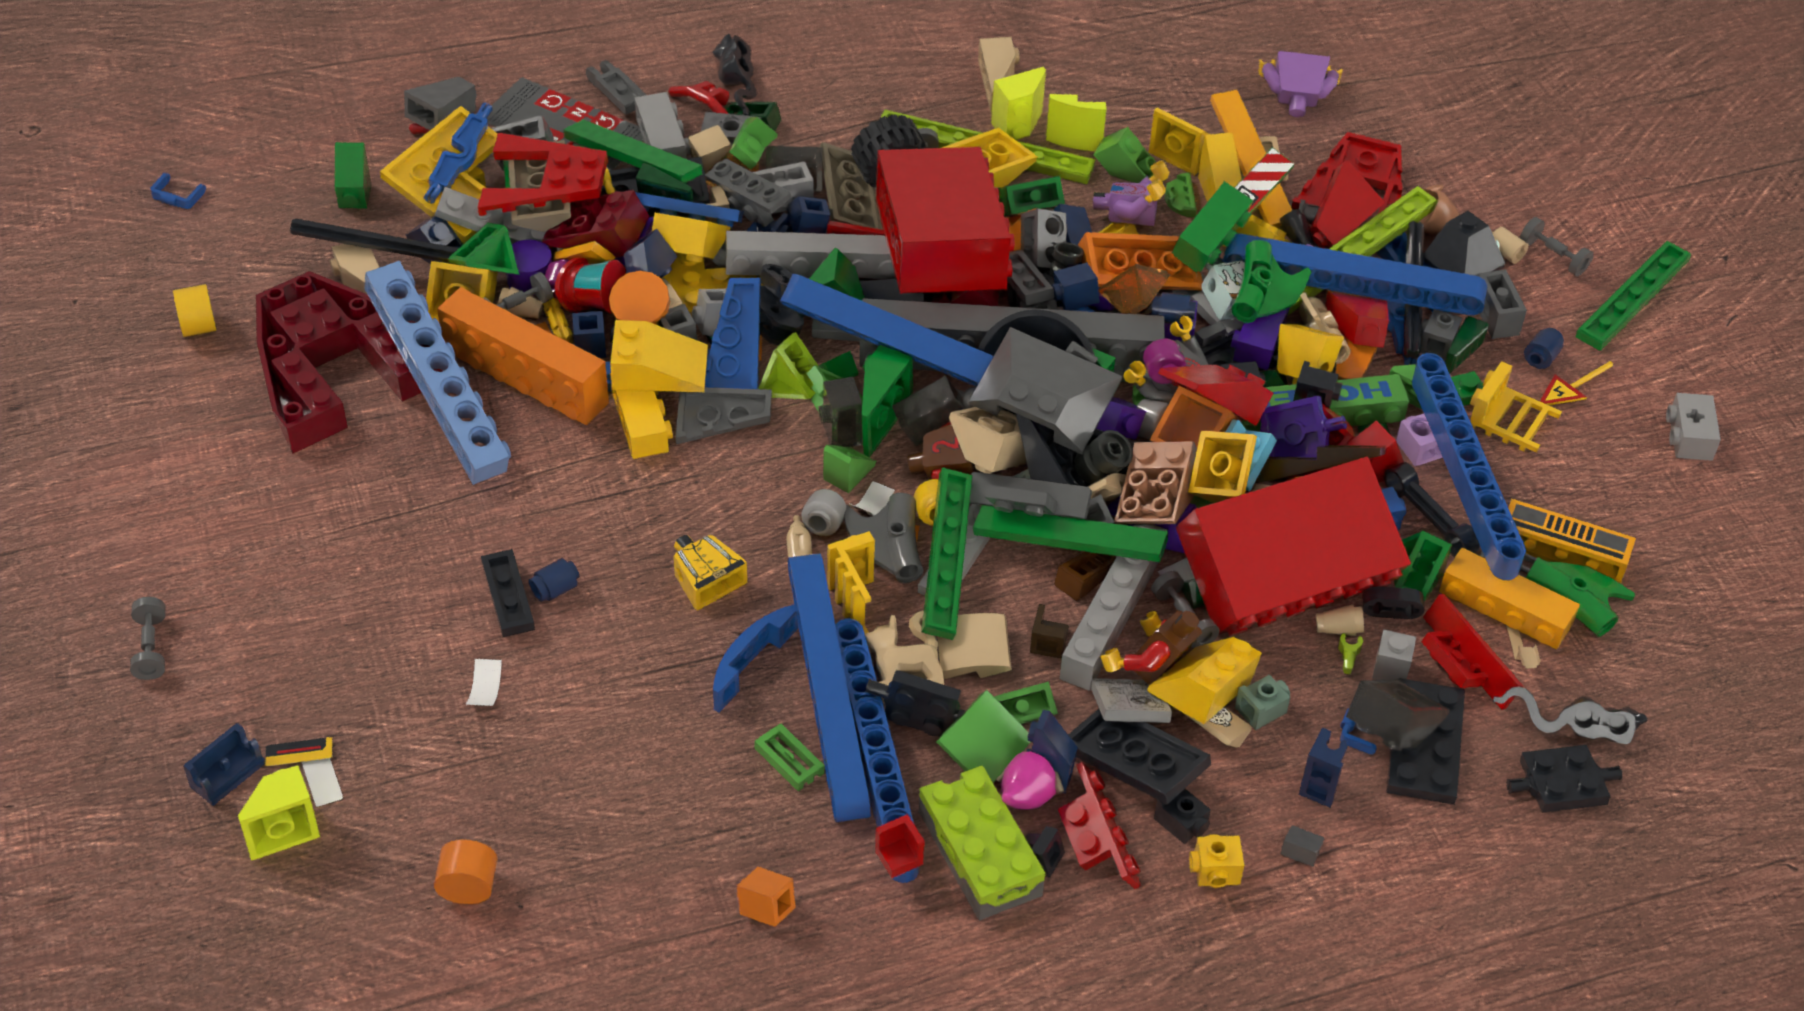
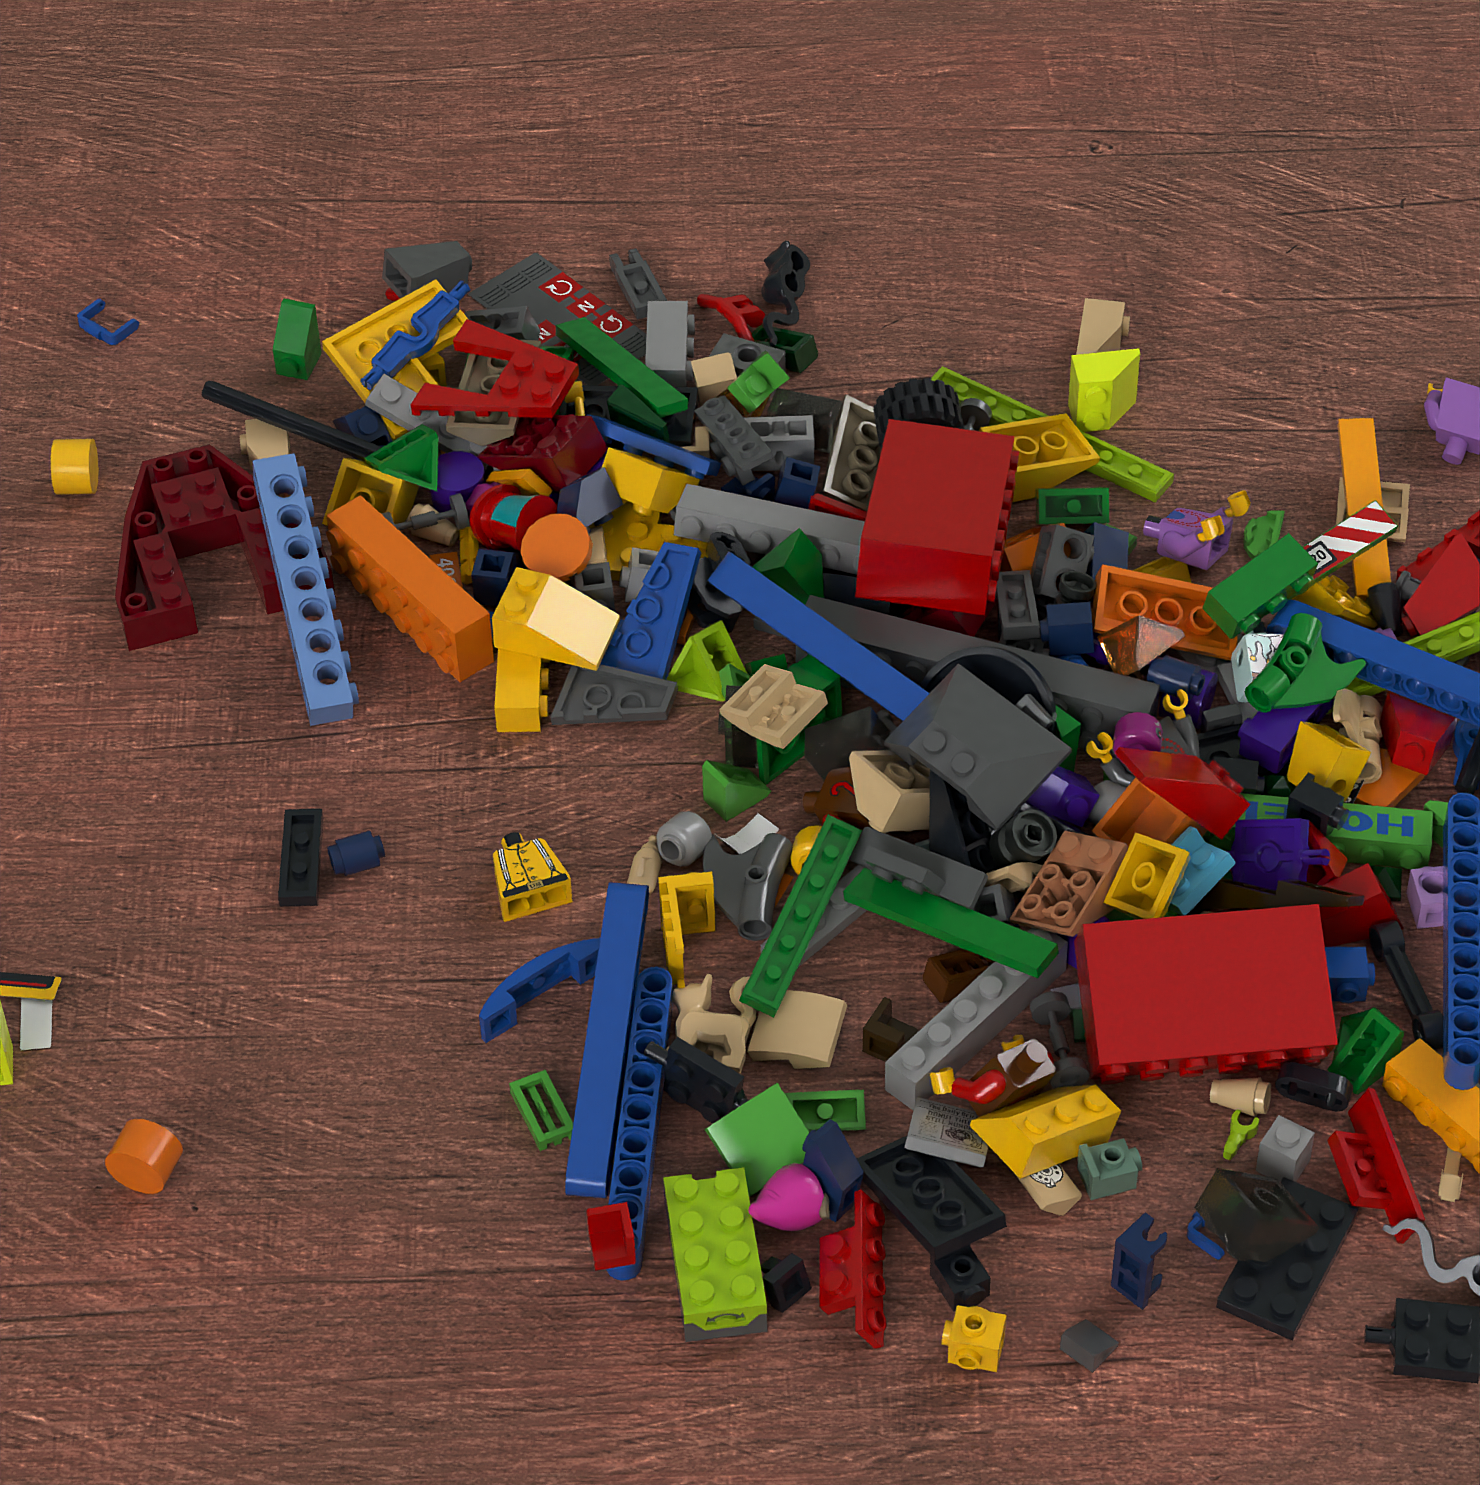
camera: 20 degrees right, 0 degrees up
(485, 682) = (244, 953): white sticker -> none
(766, 896) = (453, 1258): orange brick -> none
(869, 390) = (773, 706): none -> tan slope
(1074, 122) = (1161, 425): neon yellow slope -> none
(1124, 156) = (1208, 476): bright green slope -> none
(1176, 141) = (1284, 471): yellow slope -> none
(1218, 163) = (1316, 505): yellow slope -> none

